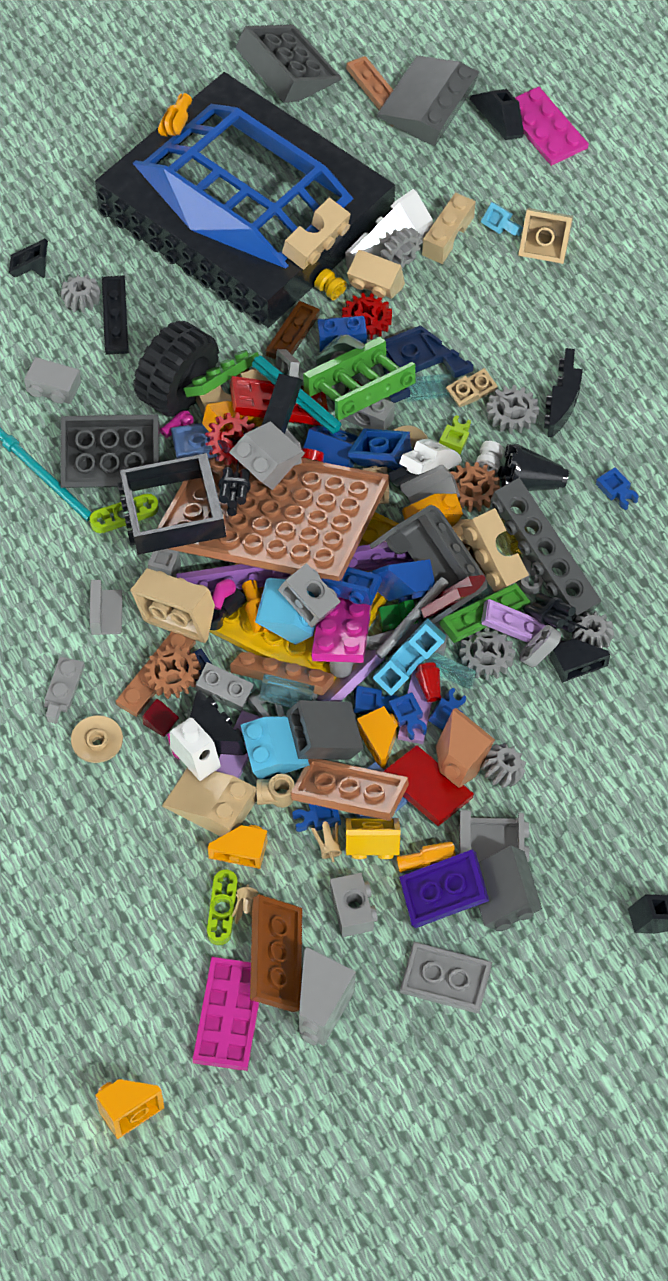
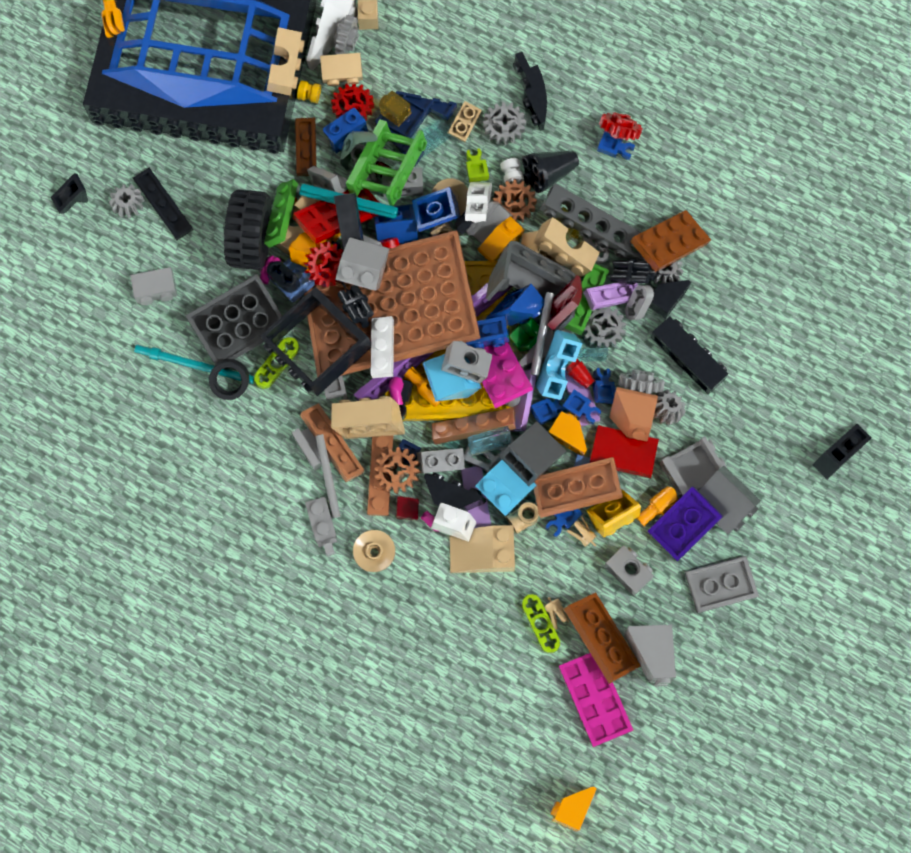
camera: 30 degrees left, 15 degrees up
(47, 495) = (217, 390): none -> black tyre
(99, 642) = (327, 476): none -> light grey bar
(125, 616) = (336, 447): none -> nougat plate
(187, 431) = (285, 274): none -> black beam
(233, 540) = (382, 347): none -> white plate
(240, 846) = (527, 571): light orange slope -> none
(405, 337) = (395, 108): none -> clear yellow brick
(490, 722) = (641, 381): none -> light grey gear
(562, 728) = (689, 355): none -> black brick
(614, 603) = (670, 240): none -> dark orange plate
(633, 469) = (620, 126): none -> red gear

